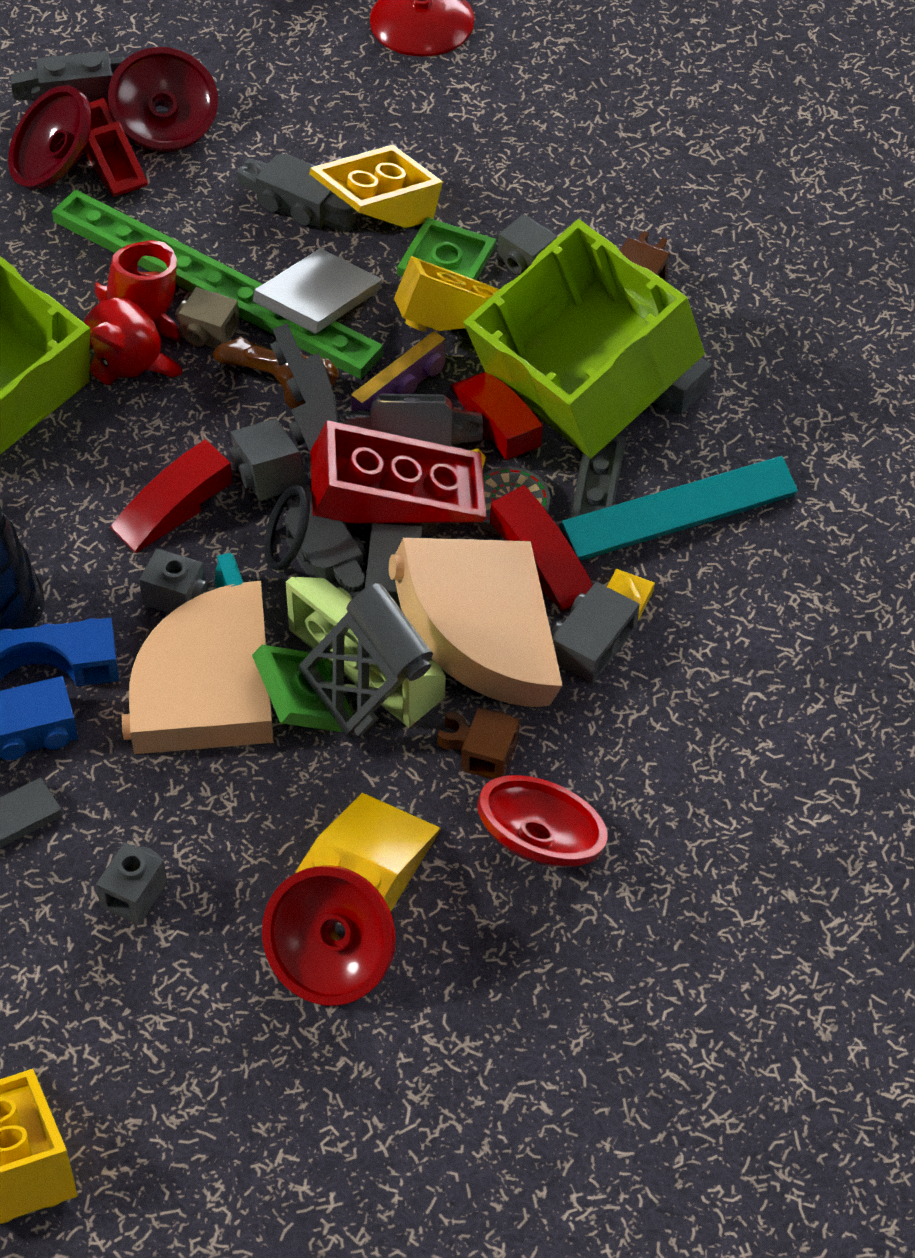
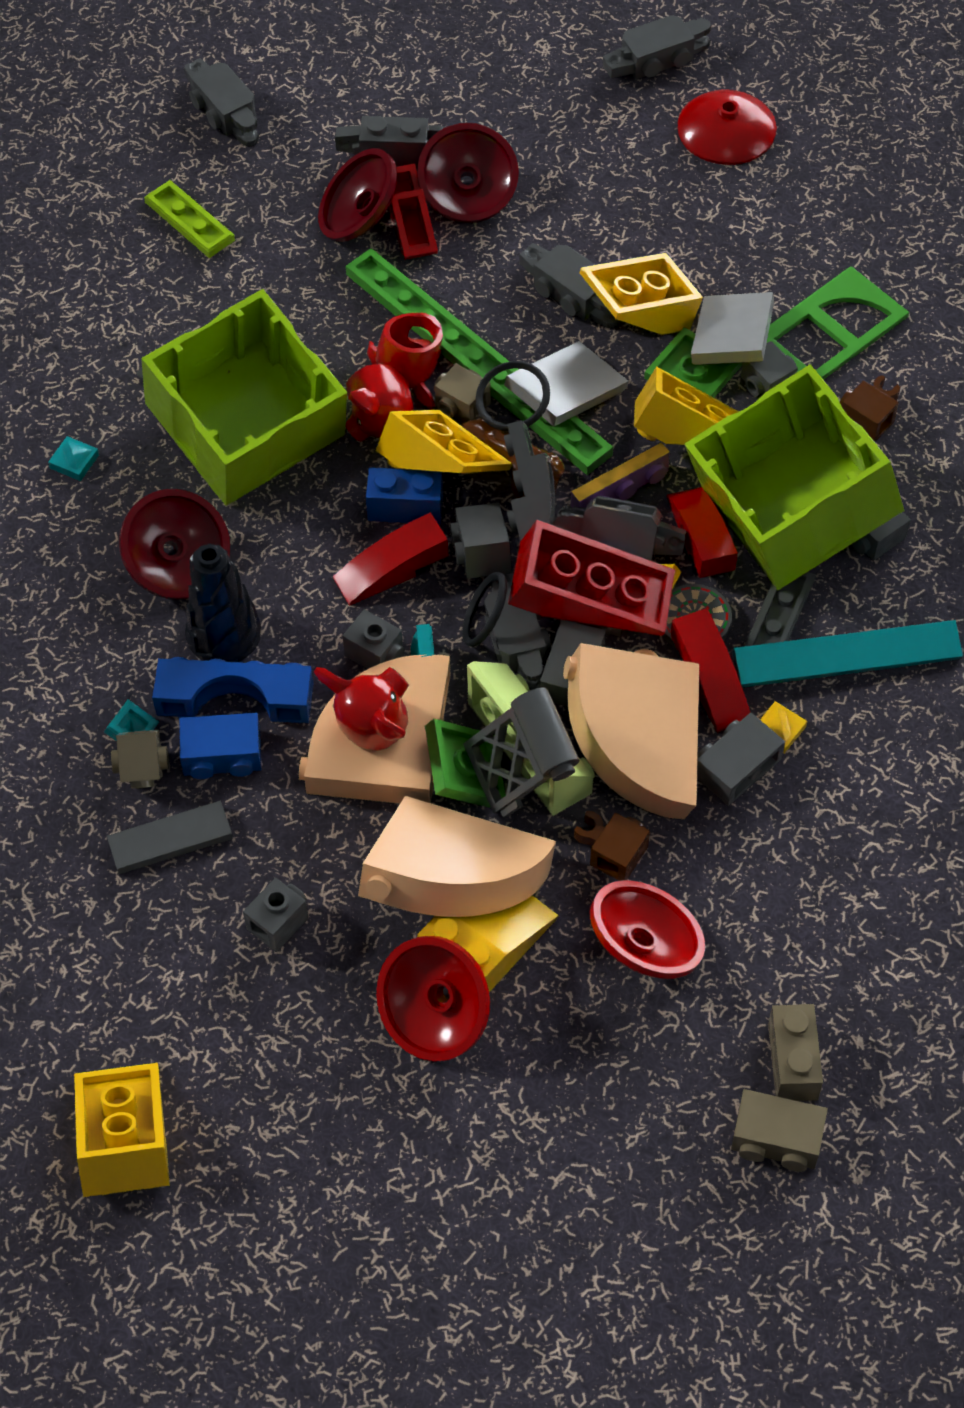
camera: 15 degrees right, 5 degrees up
(169, 428) = (403, 494): none -> blue brick
(187, 644) = (369, 707): none -> red piece
(192, 368) = (435, 443): none -> yellow slope
(255, 278) = (502, 367): none -> black tyre
(316, 791) = (452, 863): none -> light nougat brick
(480, 209) = (733, 328): none -> light grey tile
(584, 155) = (845, 287): none -> bright green window
(729, 917) = (795, 1052): none -> dark tan brick
(732, 1000) = (779, 1130): none -> dark tan brick

